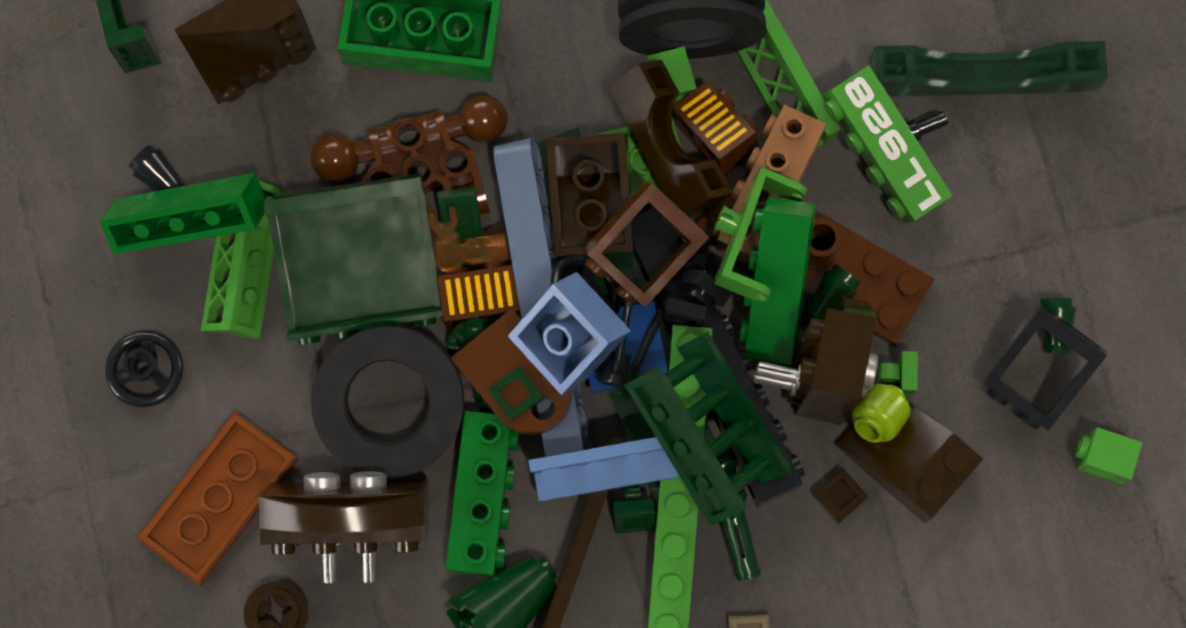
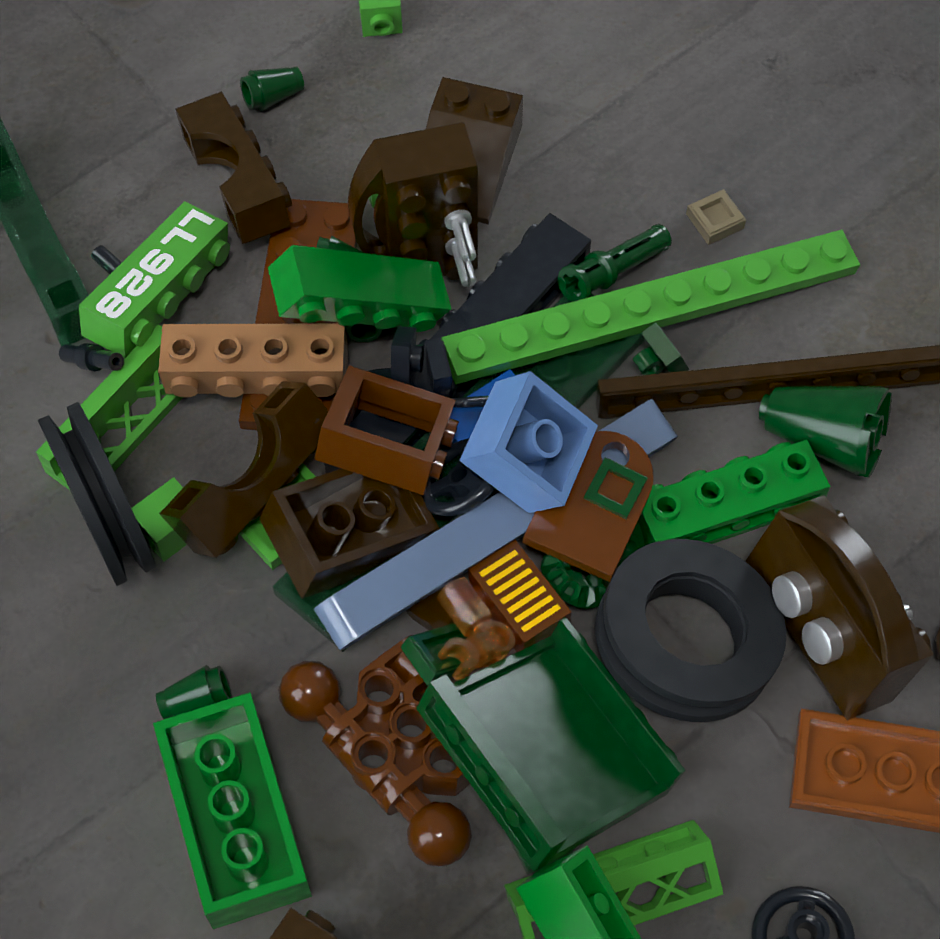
camera: 115 degrees left, 15 degrees down
(523, 45) = (194, 692): none -> dark green cone
(601, 469) = (634, 366): medium blue fence -> none
(685, 444) = (573, 293): dark green fence -> none
(715, 126) = (209, 441): reddish brown brick -> none
(737, 224) = (324, 331): bright green piece -> none
(837, 72) = (91, 357): none -> black bar
(840, 495) = (536, 196): dark brown tile -> none
(928, 249) = (251, 194): none -> dark brown arch
(1070, 337) = (315, 96): black window -> none

